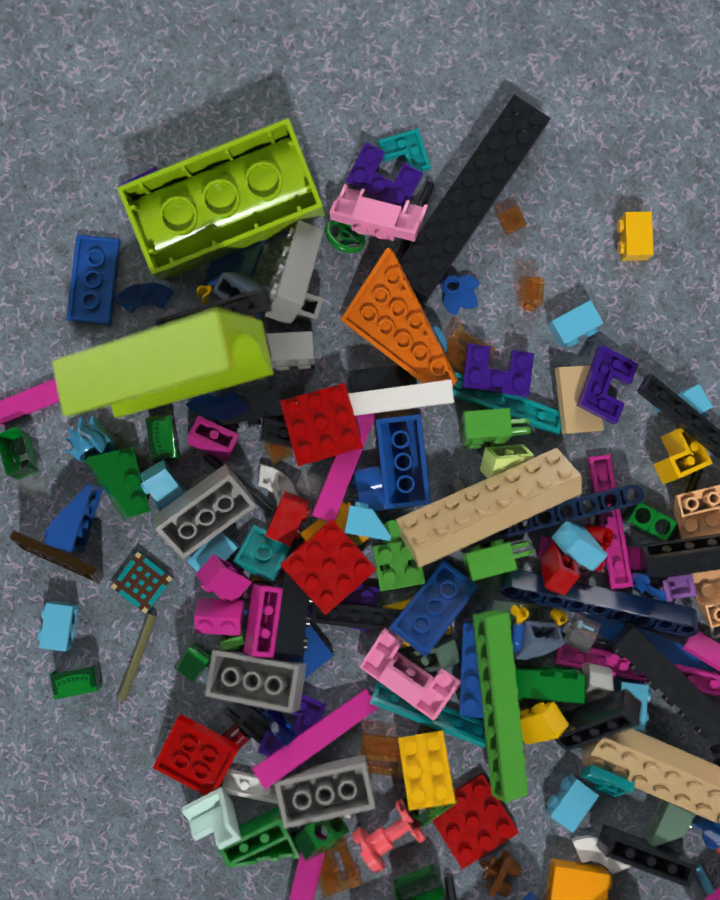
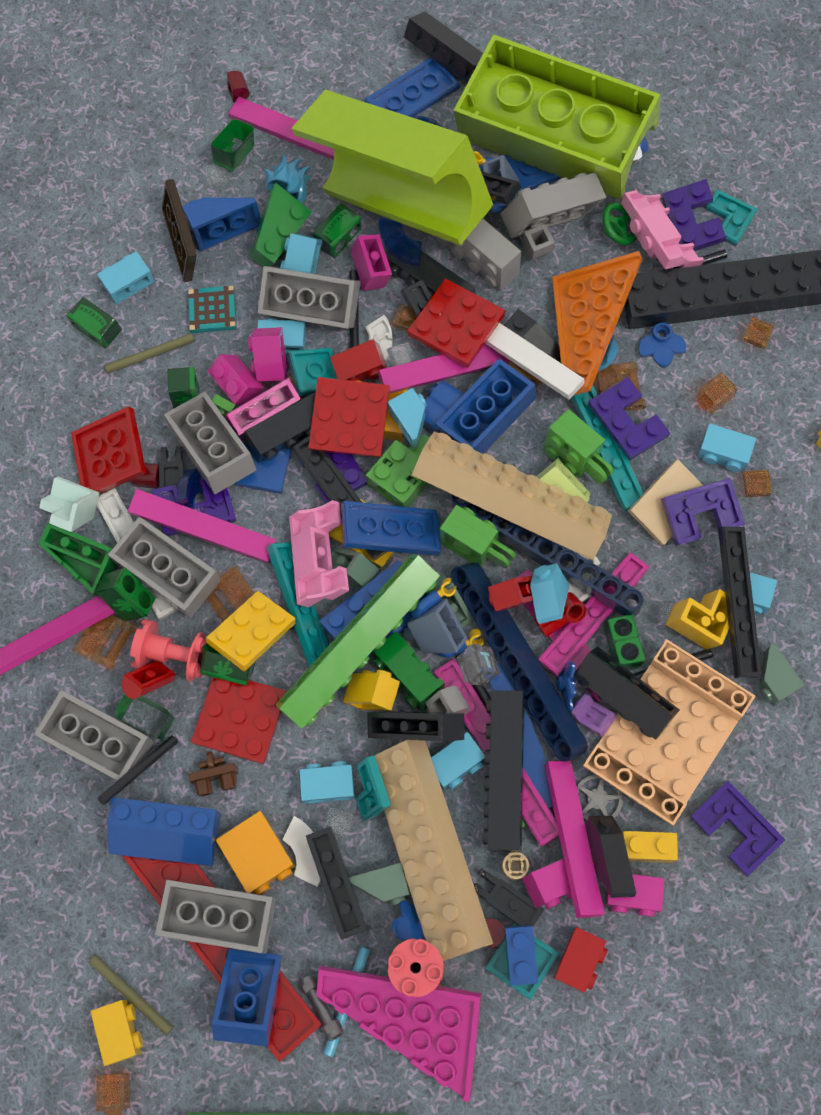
camera: 55 degrees right, 15 degrees down
(79, 221) = (443, 45): none -> black brick
(397, 870) = (146, 679): none -> red brick
(617, 328) = (757, 483): none -> clear orange plate

